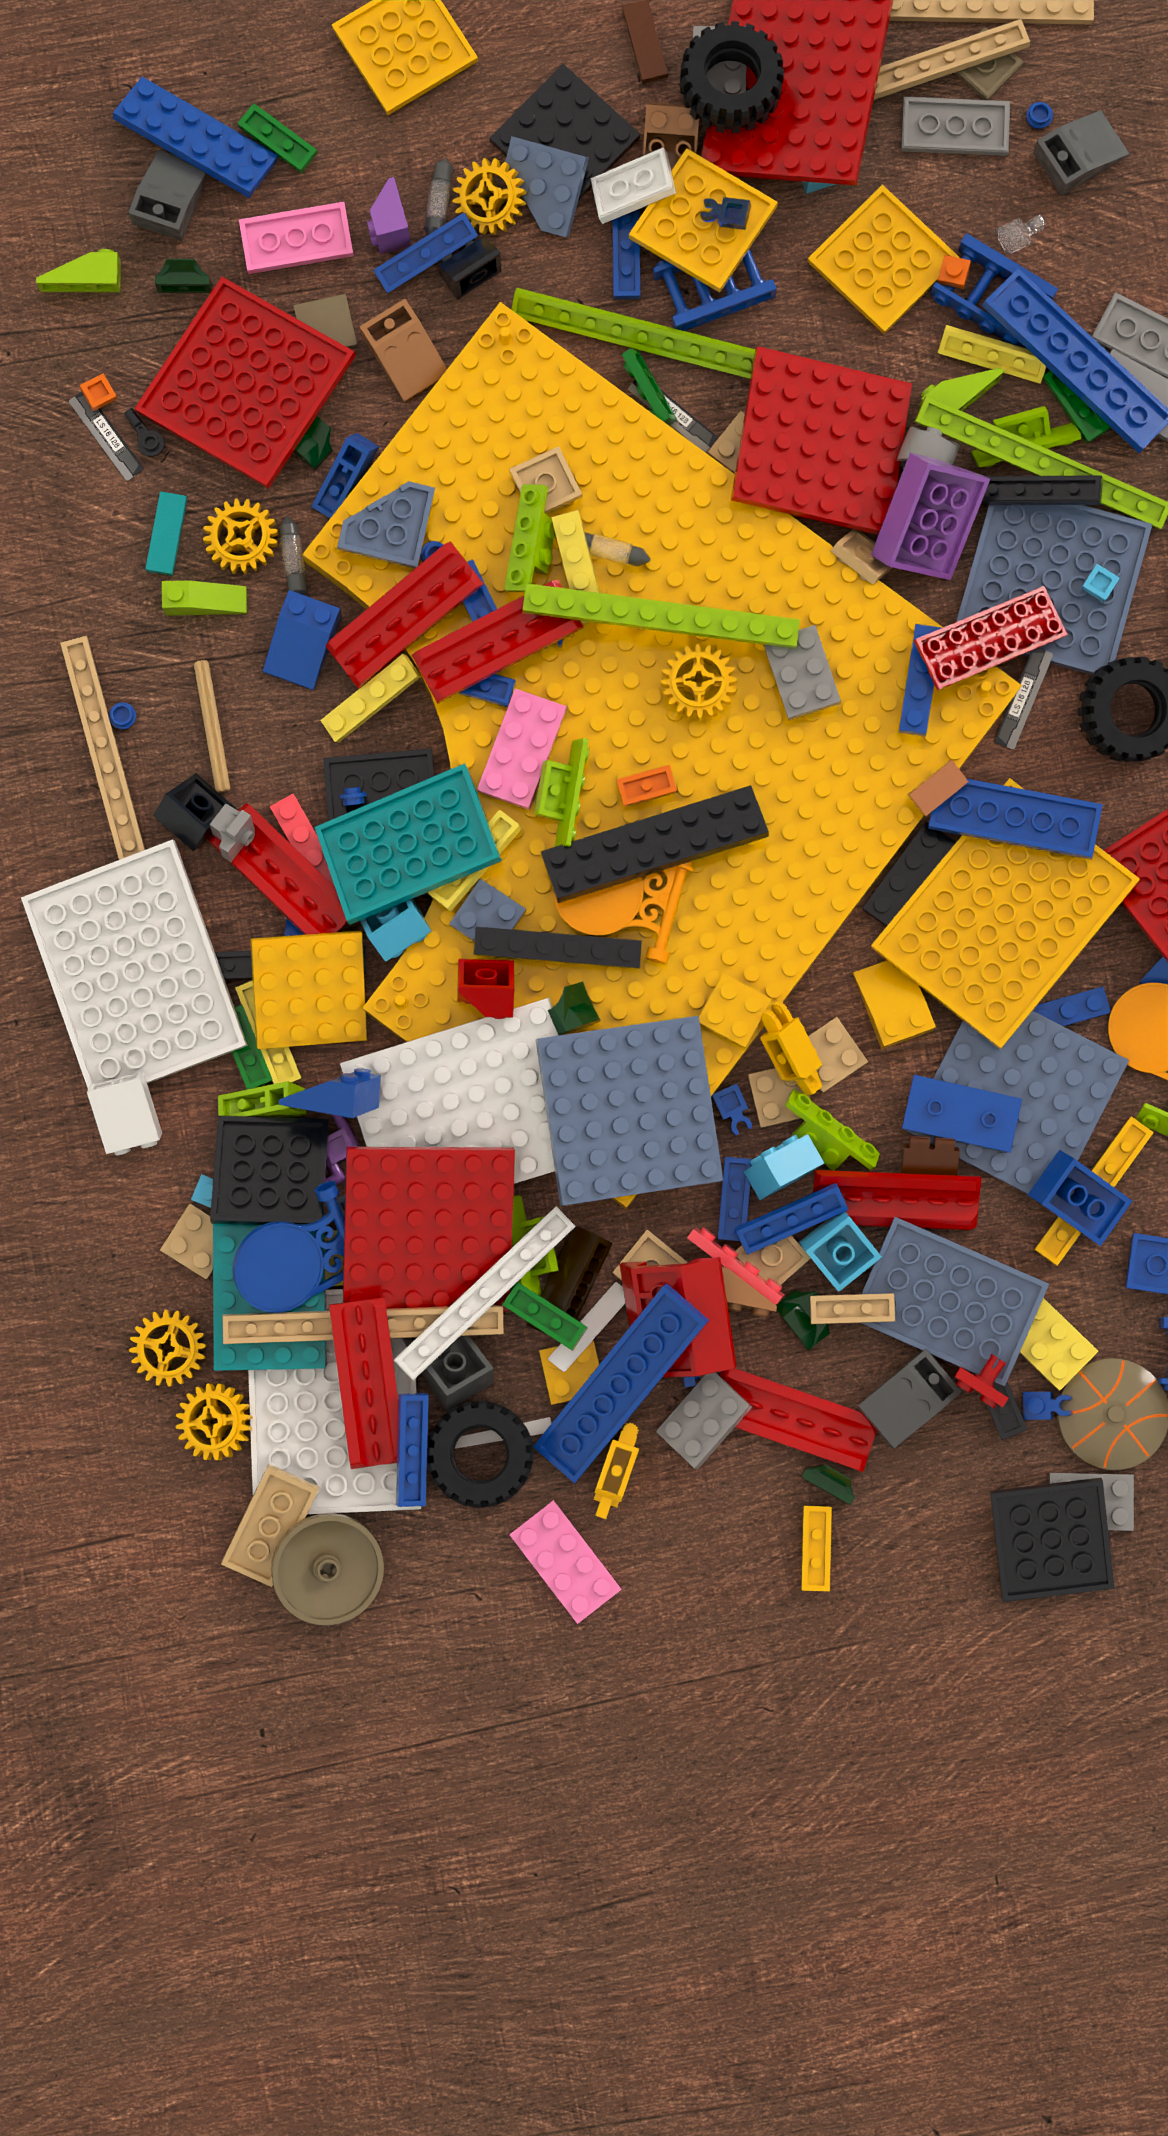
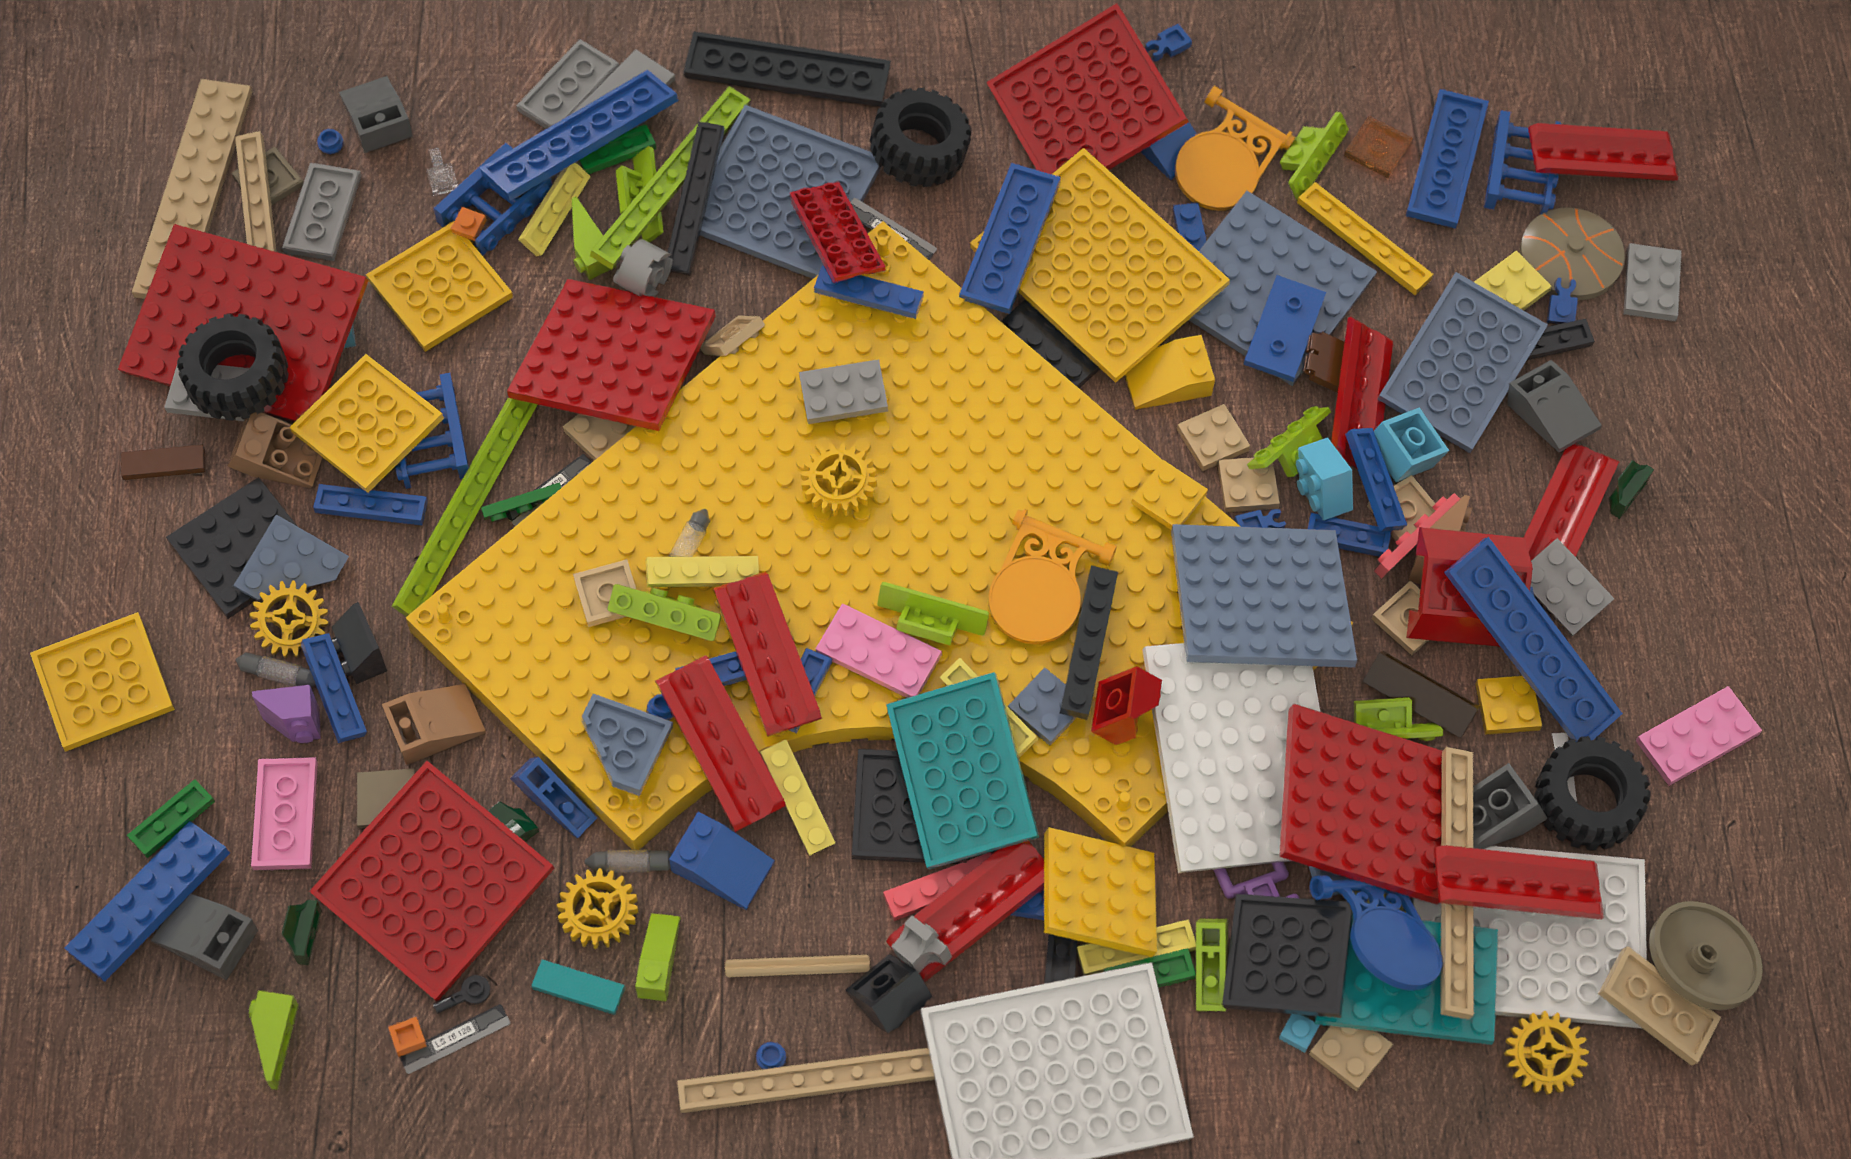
camera: 85 degrees left, 20 degrees down
(125, 1113) = (1210, 1099): white brick -> none
(191, 1353) = (1453, 1088): yellow gear -> none
(343, 1096) = (1218, 869): blue slope -> none
(352, 796) = (899, 825): blue plate -> none
(396, 928) = (1049, 795): medium azure brick -> none
(412, 1449) = (1589, 848): blue plate -> none
(484, 1293) = (1434, 760): white tile -> none
(545, 1316) = (1458, 708): green plate -> none
(573, 1010) = (1161, 630): dark green slope -> none
(595, 1321) = (1466, 680): white sticker -> none
(616, 1470) = (1618, 671): yellow hinge -> none
(633, 185) = (314, 482): white tile -> none
(646, 786) = (936, 540): orange plate -> none
(655, 844) = (997, 539): black plate -> none
(661, 616) = (768, 500): lime plate -> none
(730, 214) = (367, 390): clear blue plate -> none
(791, 1048) = (1210, 455): yellow hinge -> none
(796, 1314) = (1469, 482): dark green slope -> none
(816, 1548) = (1691, 510): yellow plate -> none
(852, 1308) = (1466, 440): tan plate -> none
(930, 517) = (707, 270): medium lavender slope -> none
(938, 788) = (975, 292): nougat tile -> none
(983, 1382) = (1546, 339): red plate -> none
(1052, 1539) = (1690, 310): black plate -> none
(1080, 1197) = (1372, 243): blue slope -> none
(1100, 583) = (795, 148): medium azure plate -> none

